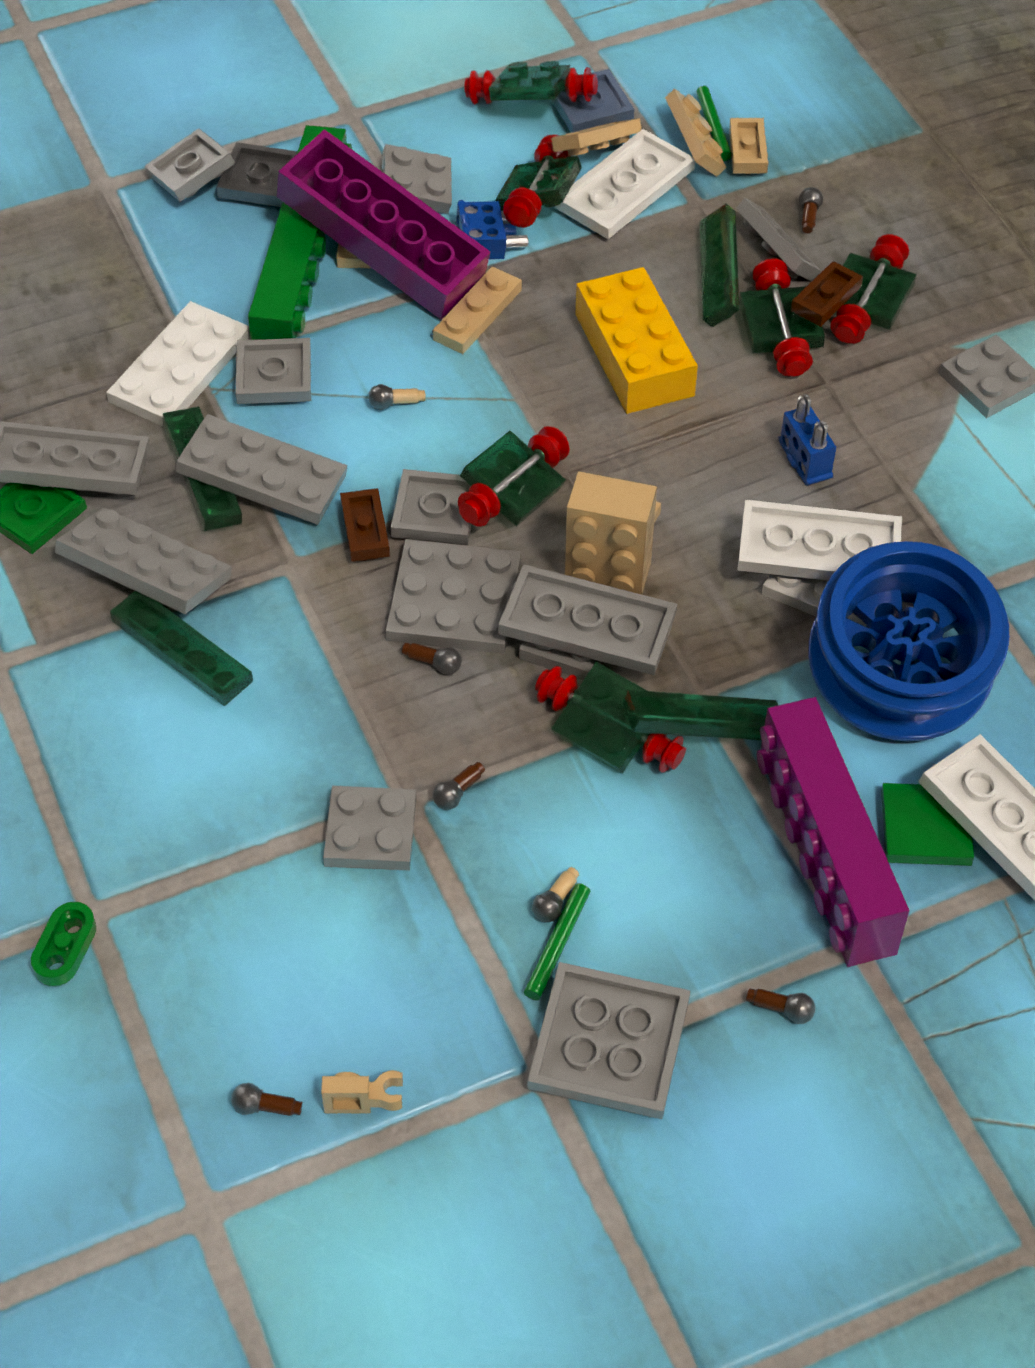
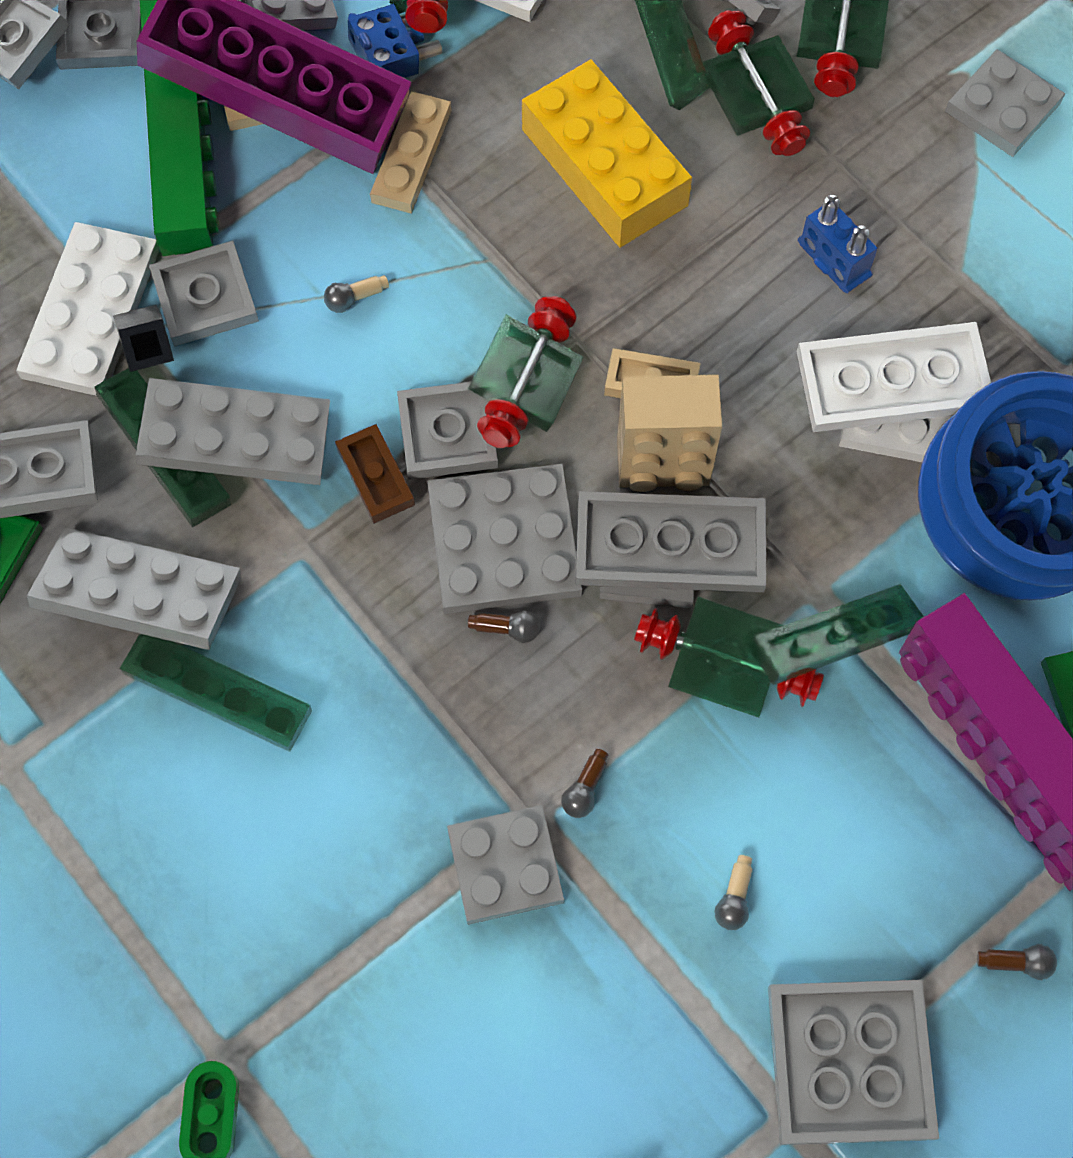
camera: 15 degrees left, 15 degrees up
(213, 387) = (143, 338): none -> black brick
(557, 942) = (755, 951): green bar -> none
(826, 293) = (804, 44): reddish brown plate -> none

